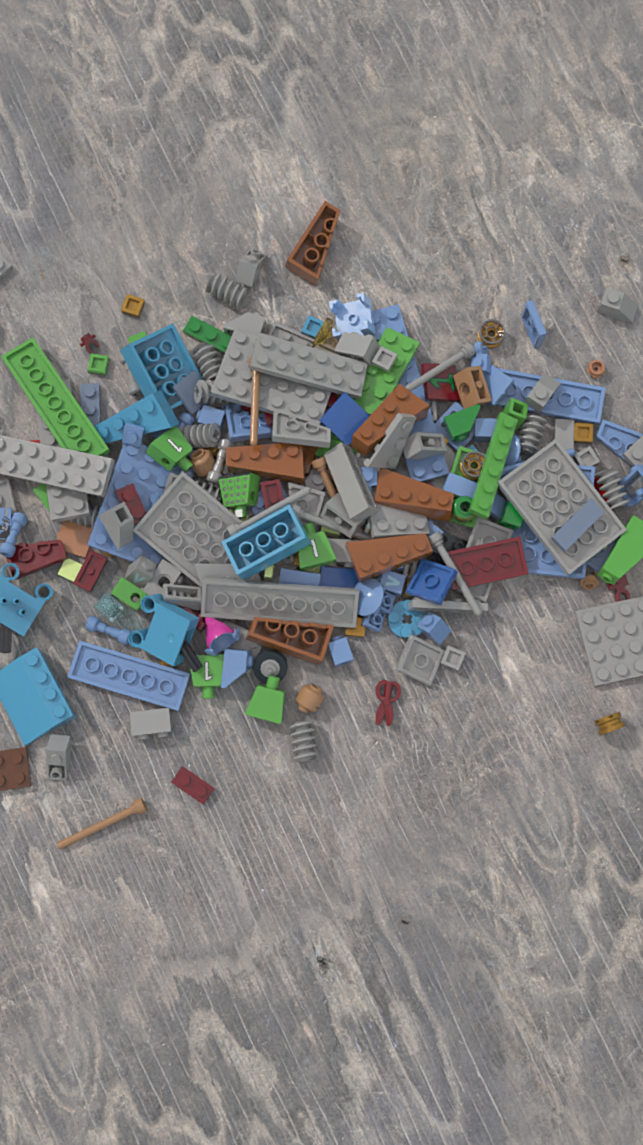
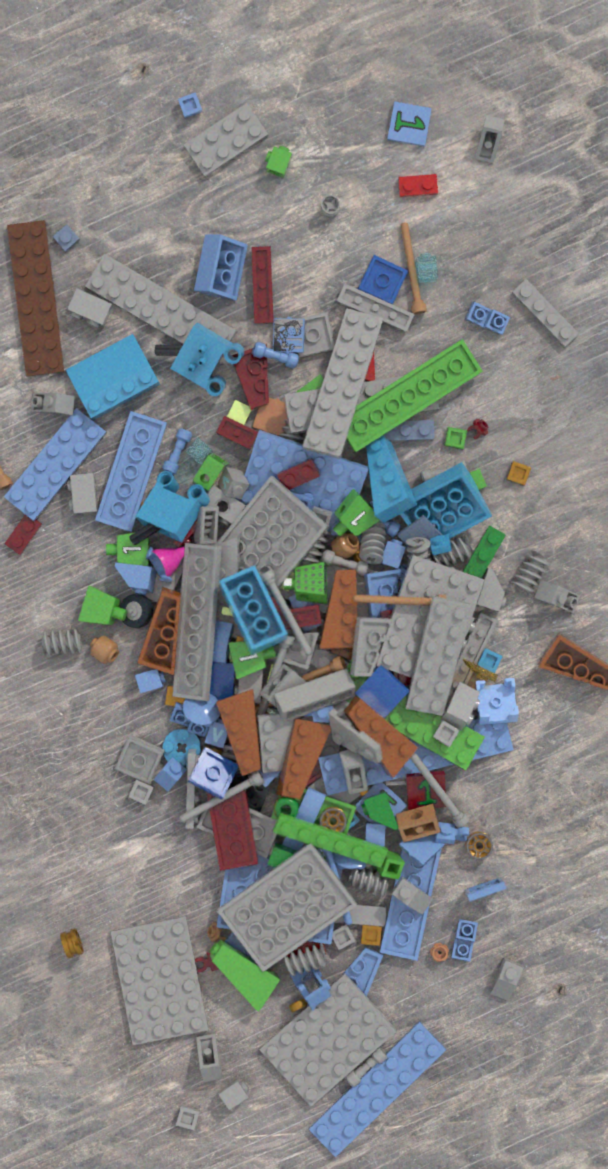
camera: 85 degrees right, 10 degrees up
(118, 524) = (276, 462): light grey slope -> none
(121, 753) = (55, 464): none -> medium blue plate
(133, 434) = (369, 476): medium blue plate -> none
(200, 370) = (440, 544): none -> dark azure plate
(386, 706) = (95, 723): dark red piece -> none
(577, 525) = (266, 921): sand blue tile -> none
(583, 347) = (464, 940): none -> medium blue slope

